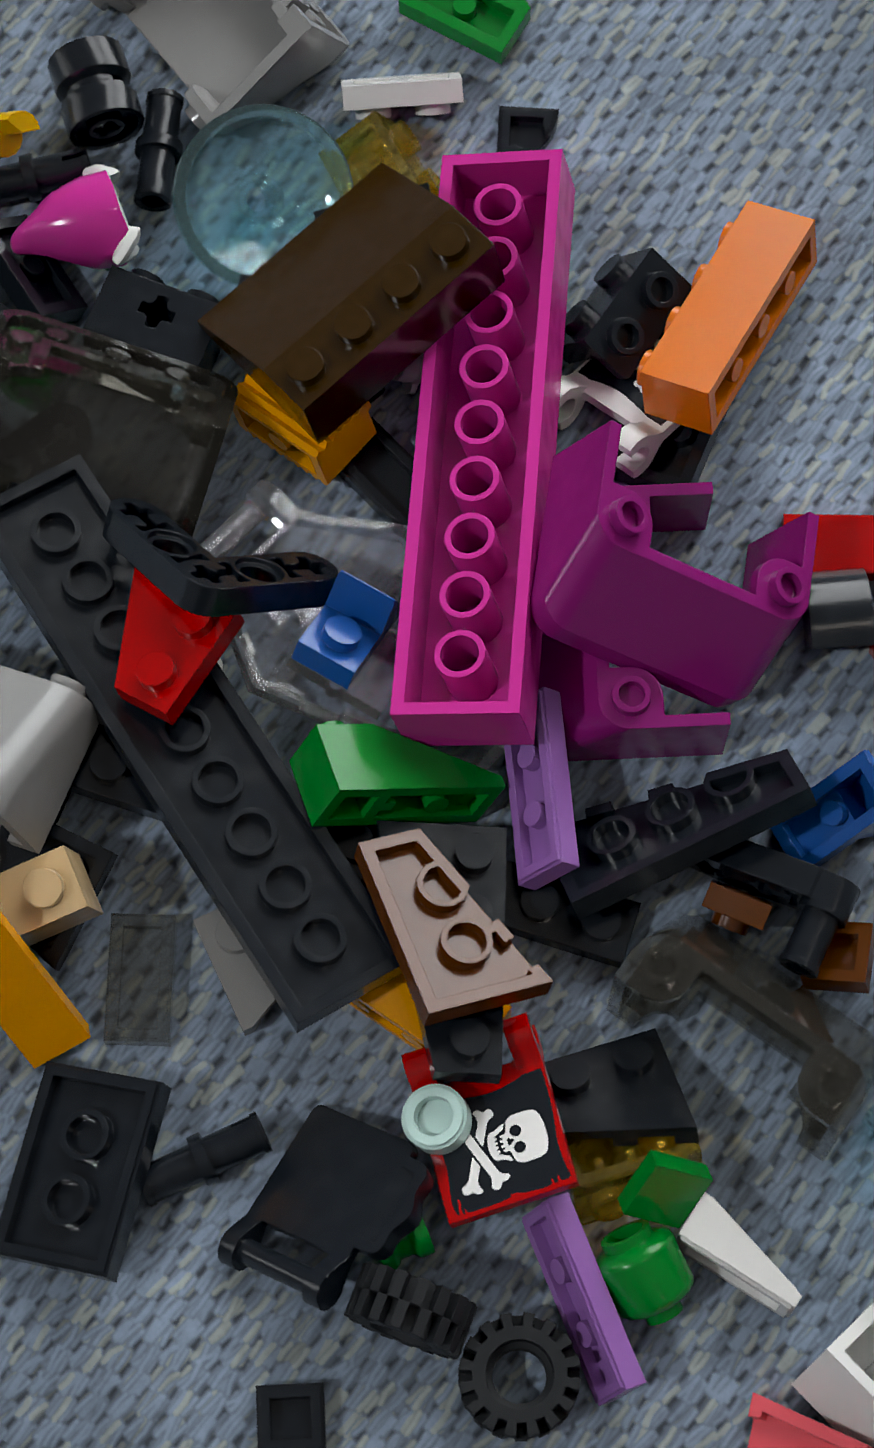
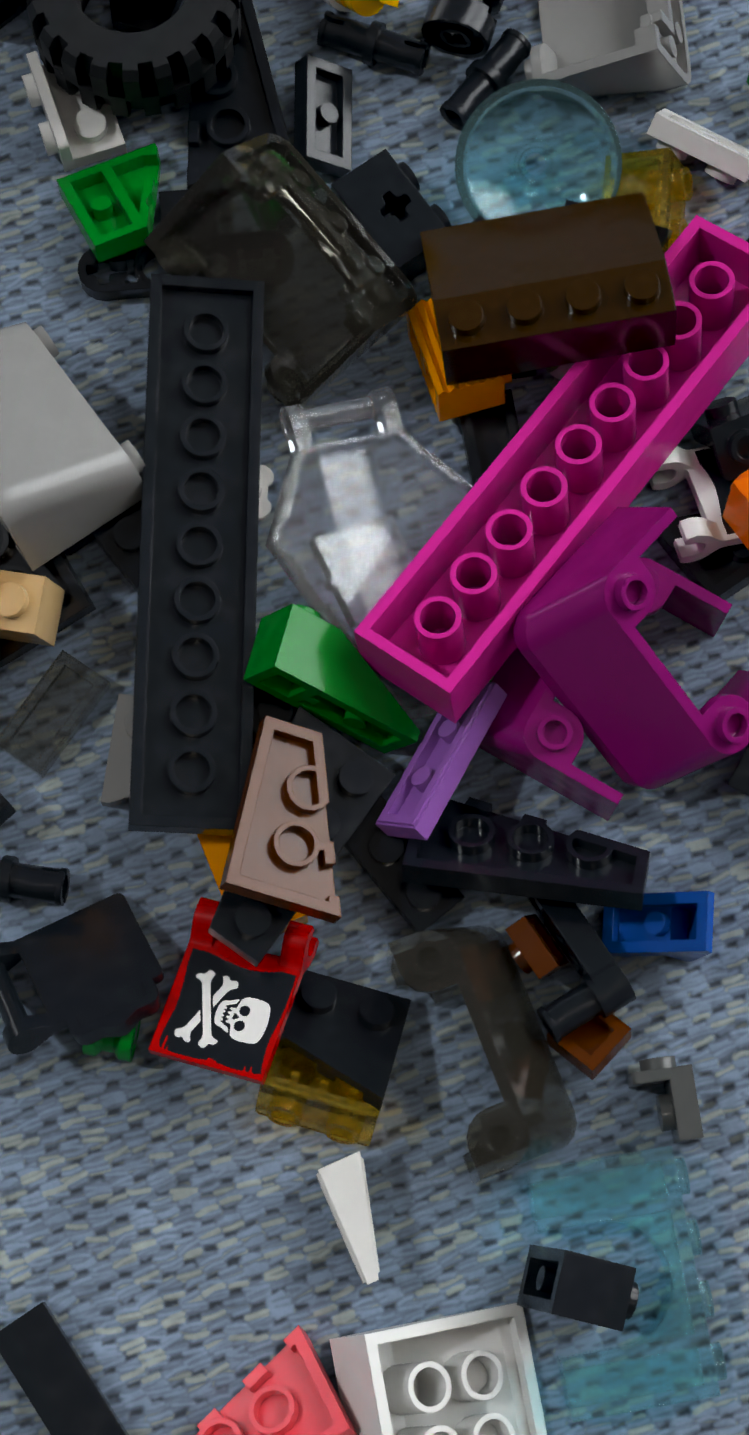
camera: 30 degrees right, 5 degrees up
(81, 224) = (383, 101): dark pink hat -> none
(167, 650) = (229, 470): red wing -> none
(208, 583) = (293, 451): black beam -> none
(346, 630) = (372, 543): blue slope -> none
(411, 1310) = (78, 1095): black tyre -> none
(436, 1119) = (192, 963): light aqua tile -> none
(533, 1336) = (94, 1188): black tyre -> none
(583, 1299) = (216, 1170): medium lavender tile -> none
(645, 1272) = (275, 1180): green head -> none
(664, 1189) = (328, 1129): green tile -> none

